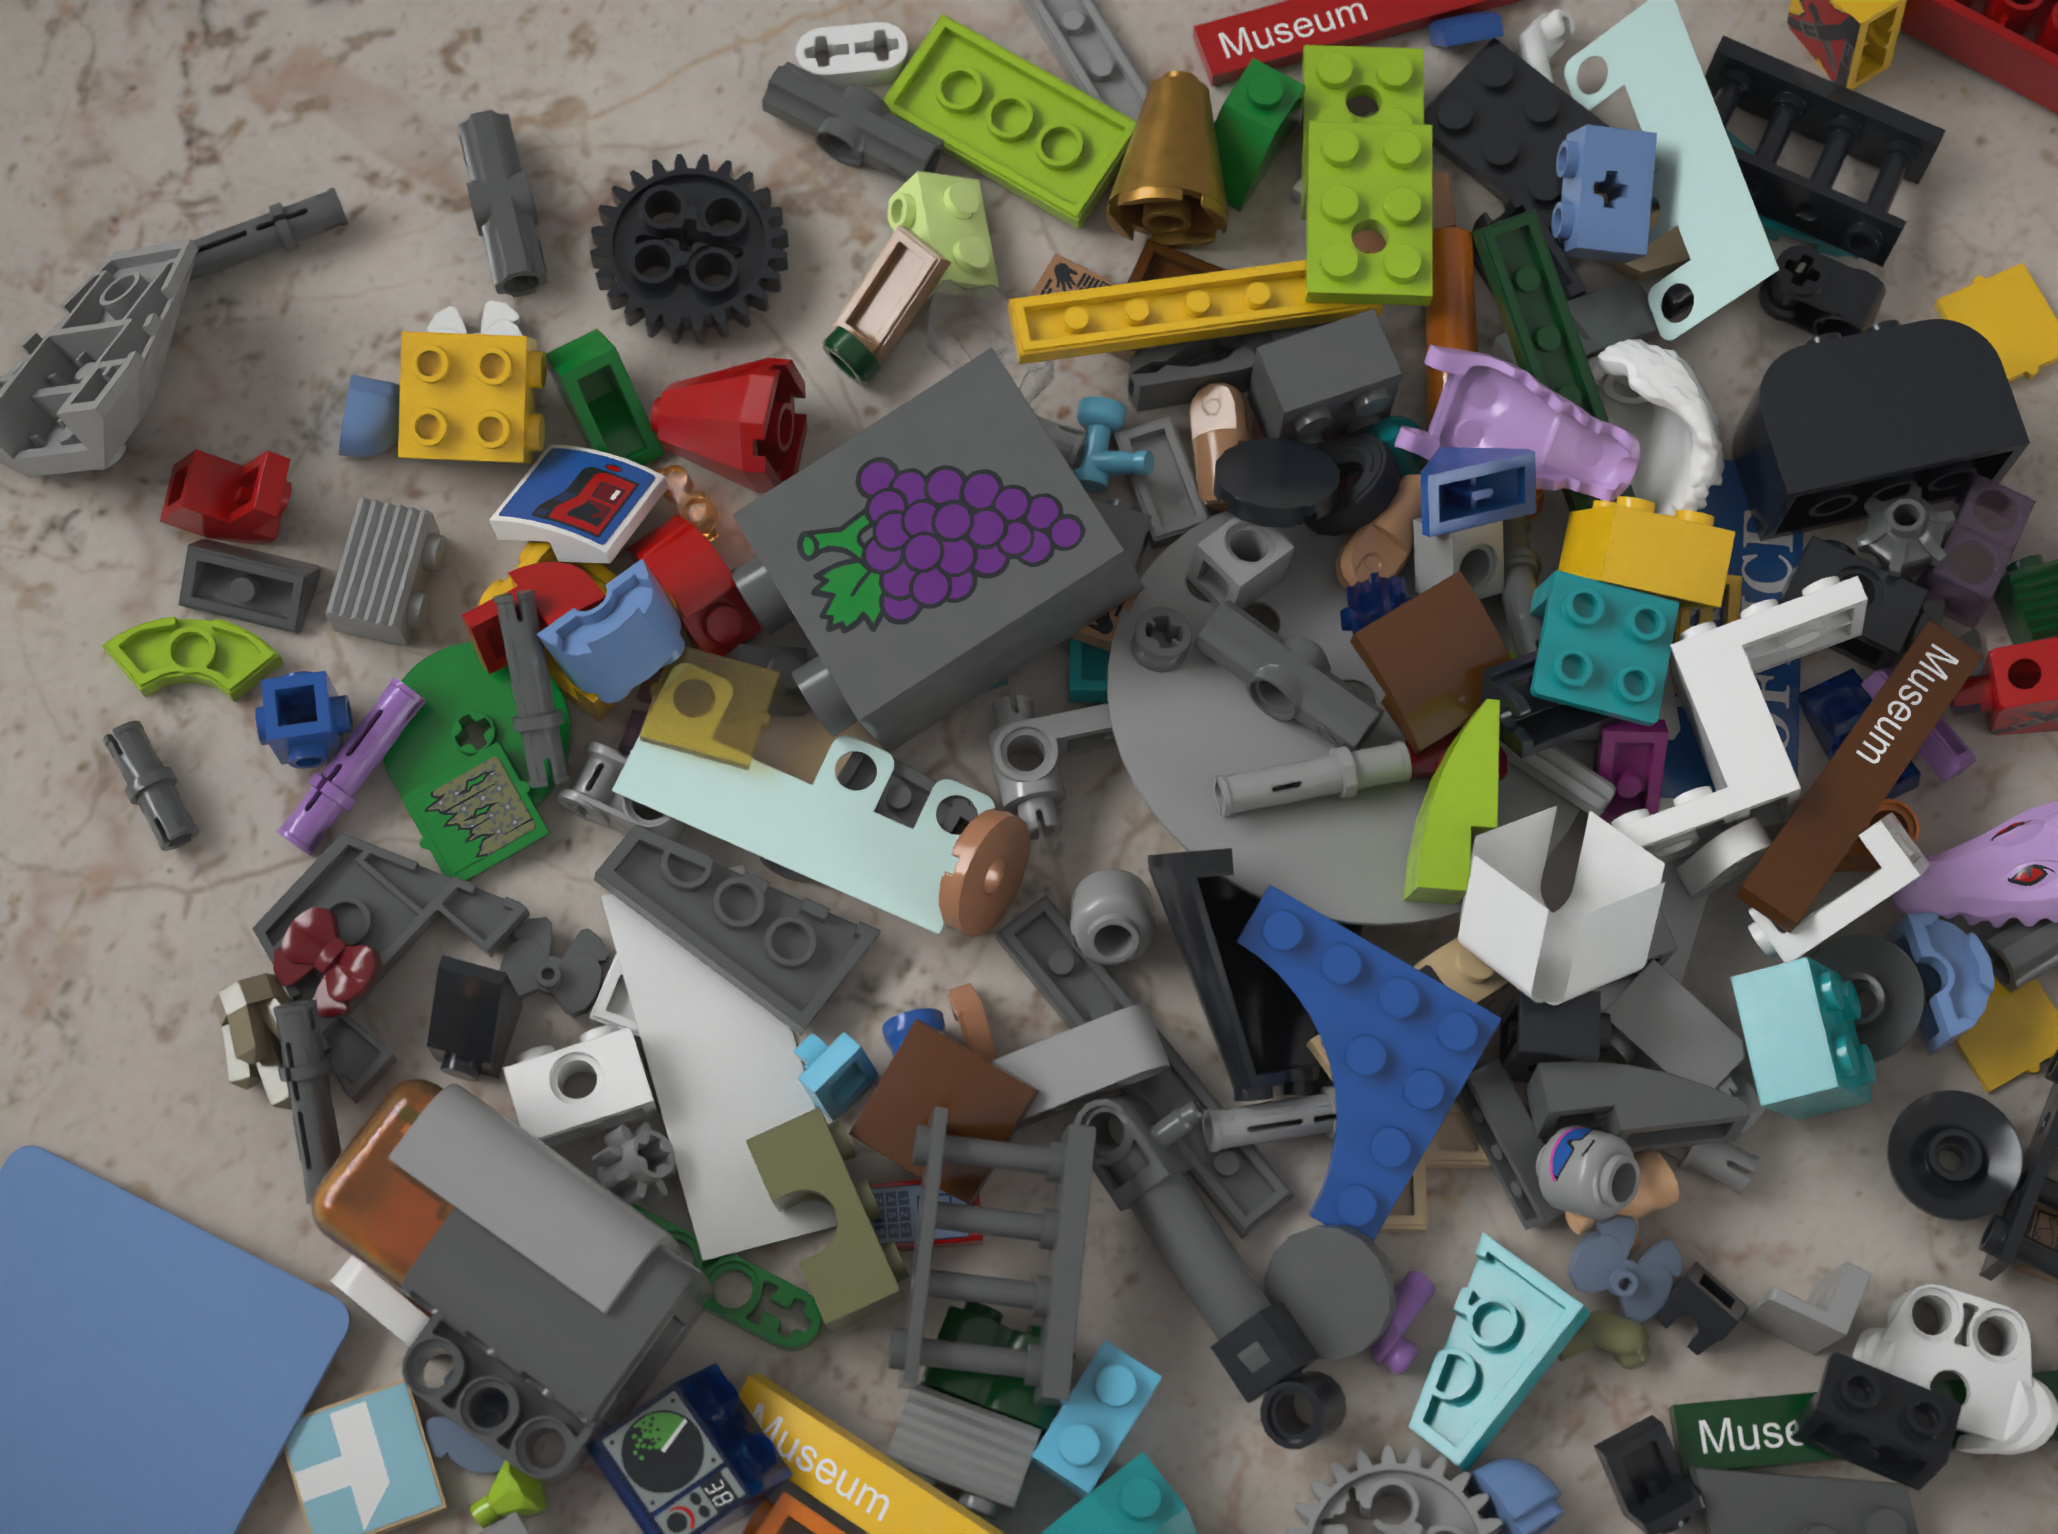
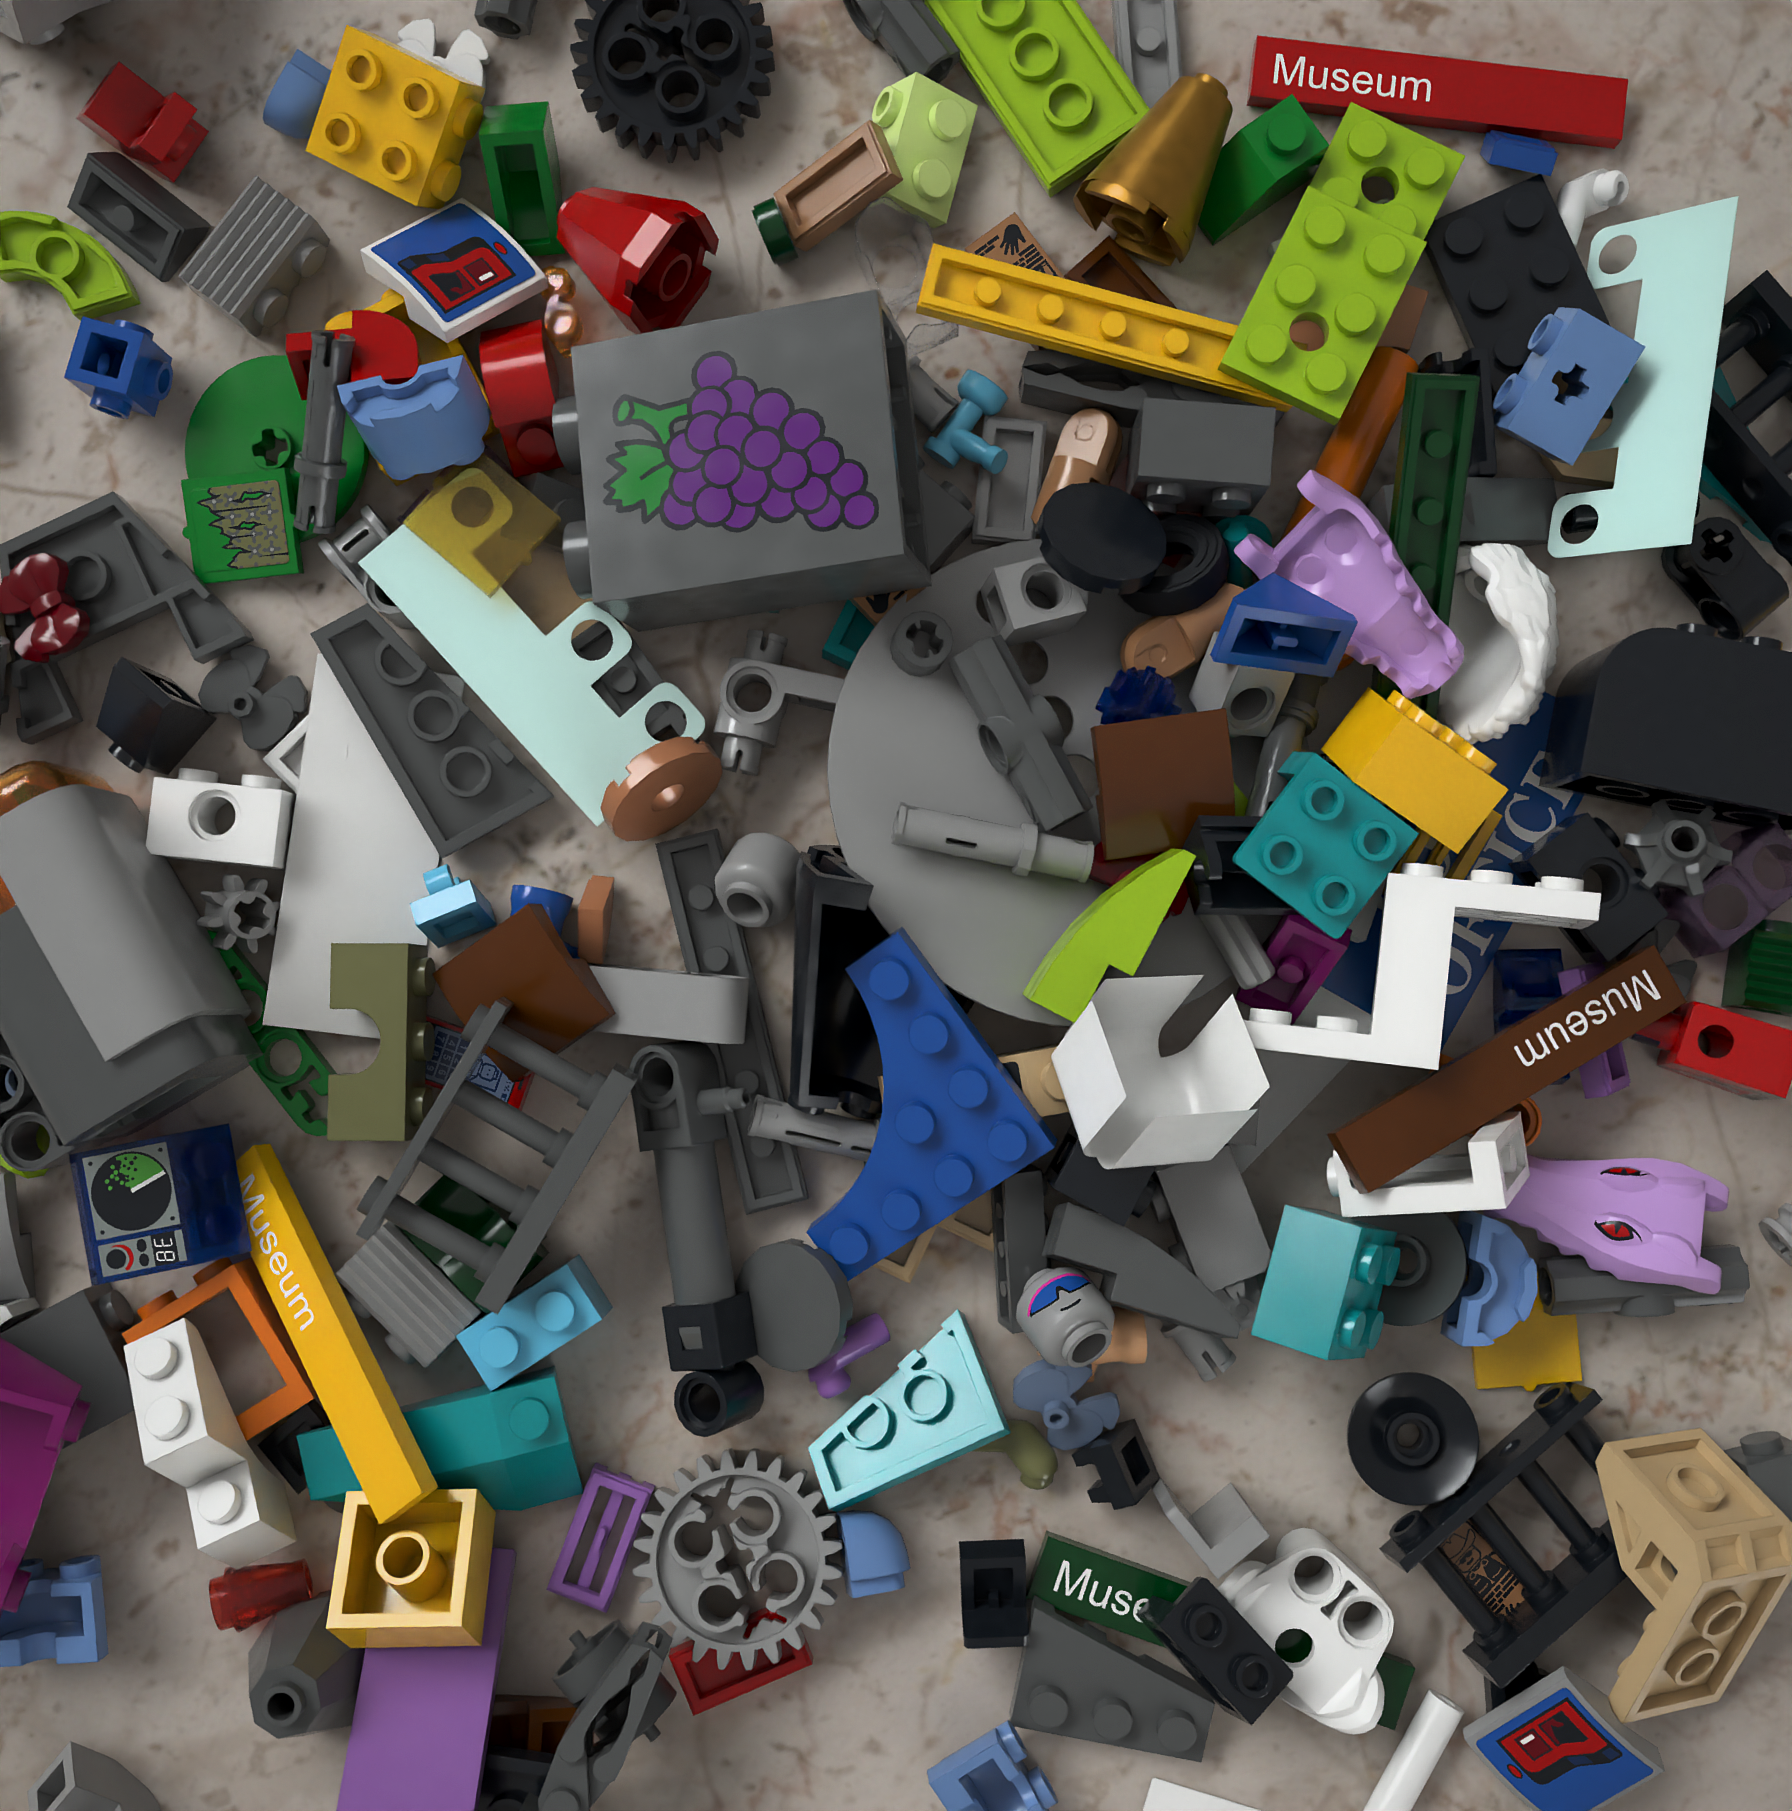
camera: 30 degrees right, 15 degrees up
(351, 766) = (129, 444): medium lavender pin -> none
(1724, 858) = (1343, 1081): white beam -> none

